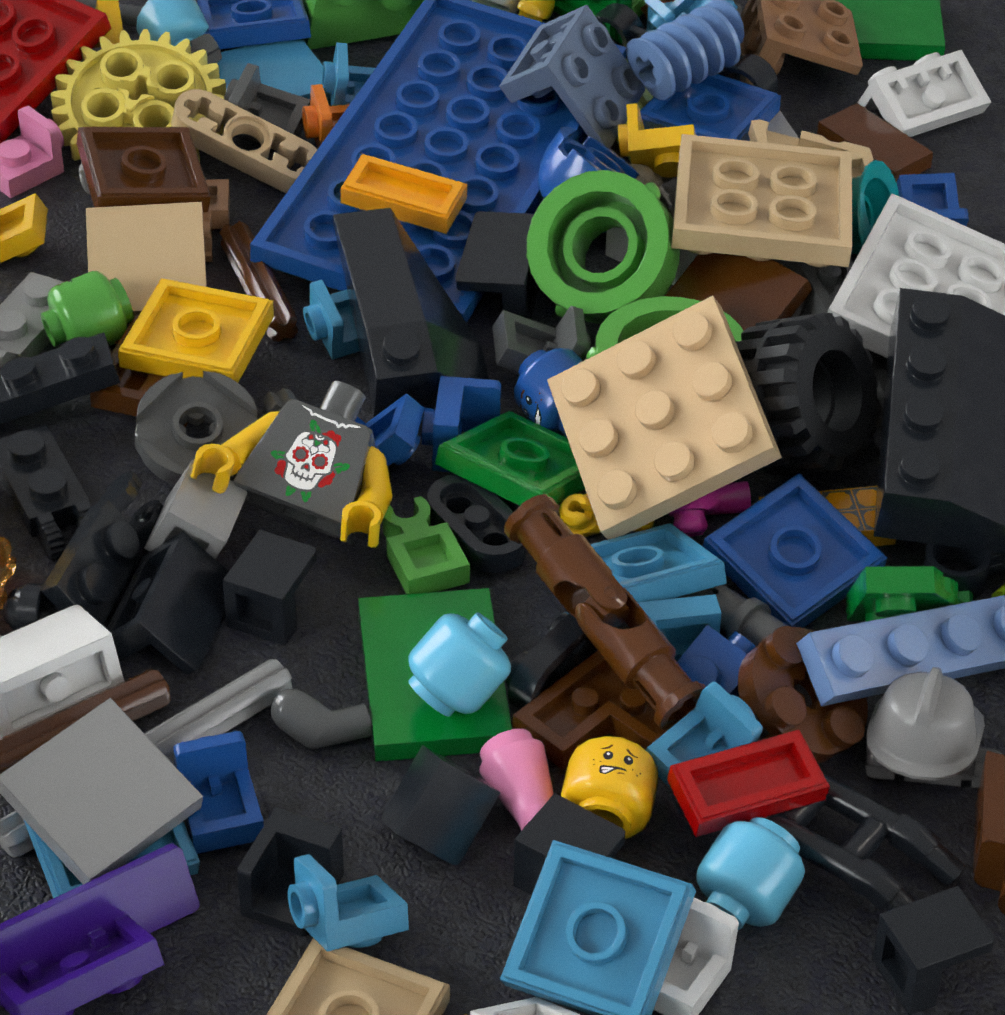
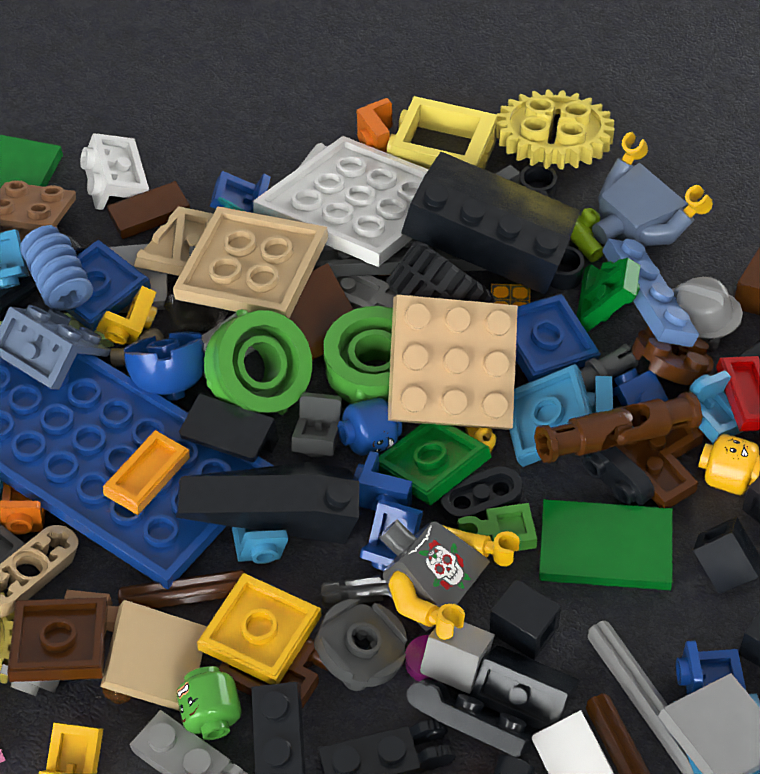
camera: 75 degrees left, 10 degrees up
(315, 724) = (643, 616): dark grey arm -> none
(459, 663) = (641, 514): medium azure head -> none
(518, 770) = (706, 509): bright pink cone -> none

